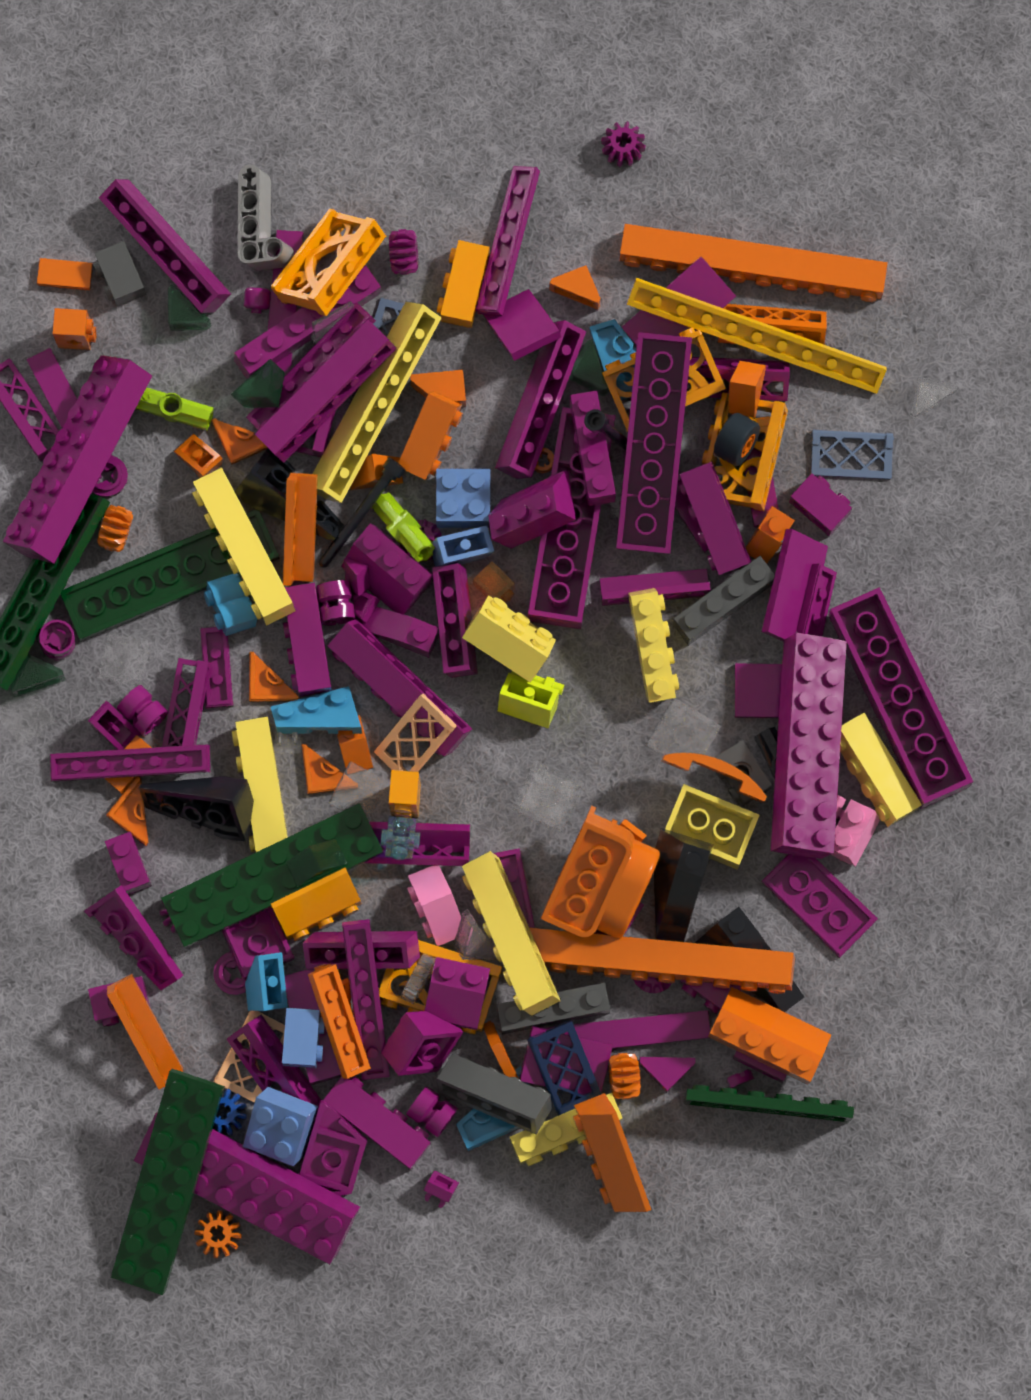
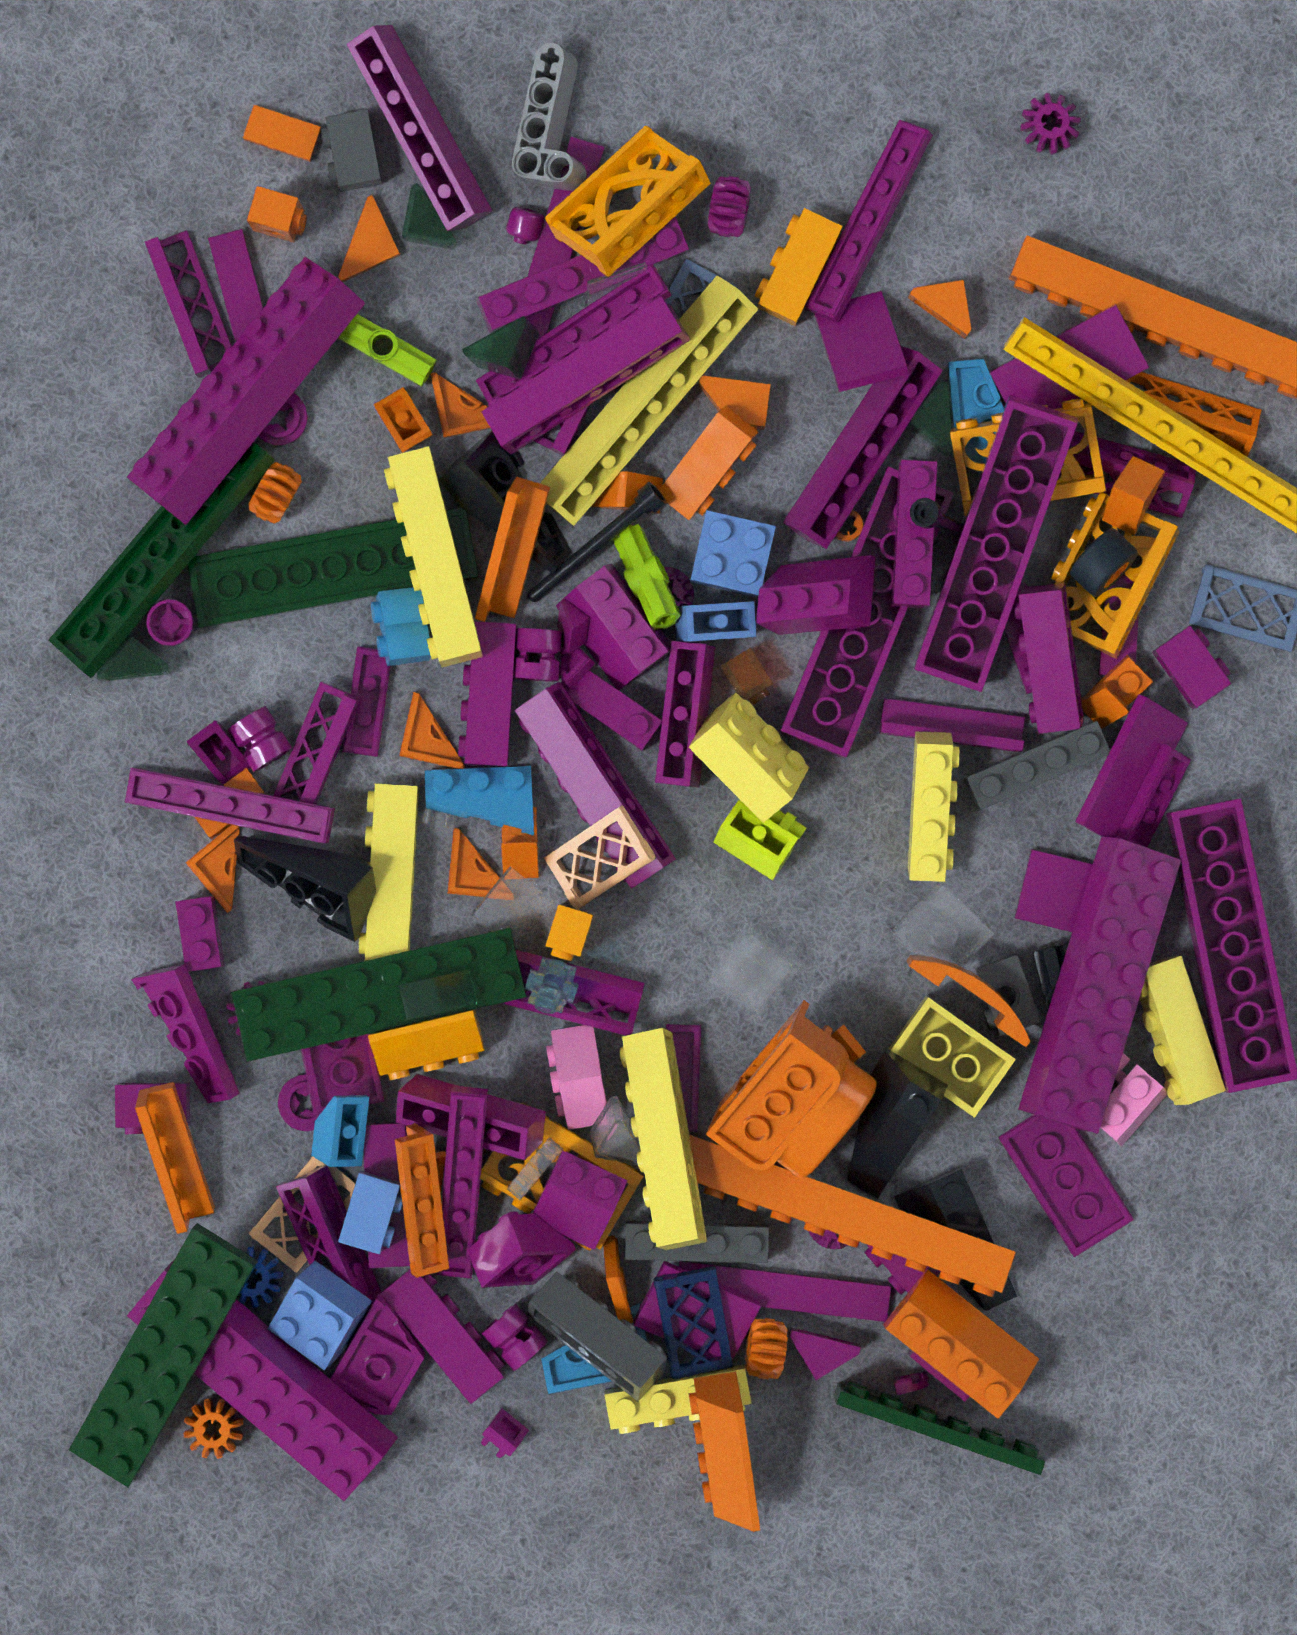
camera: 10 degrees right, 10 degrees up
(147, 336) = (370, 243): none -> orange tile

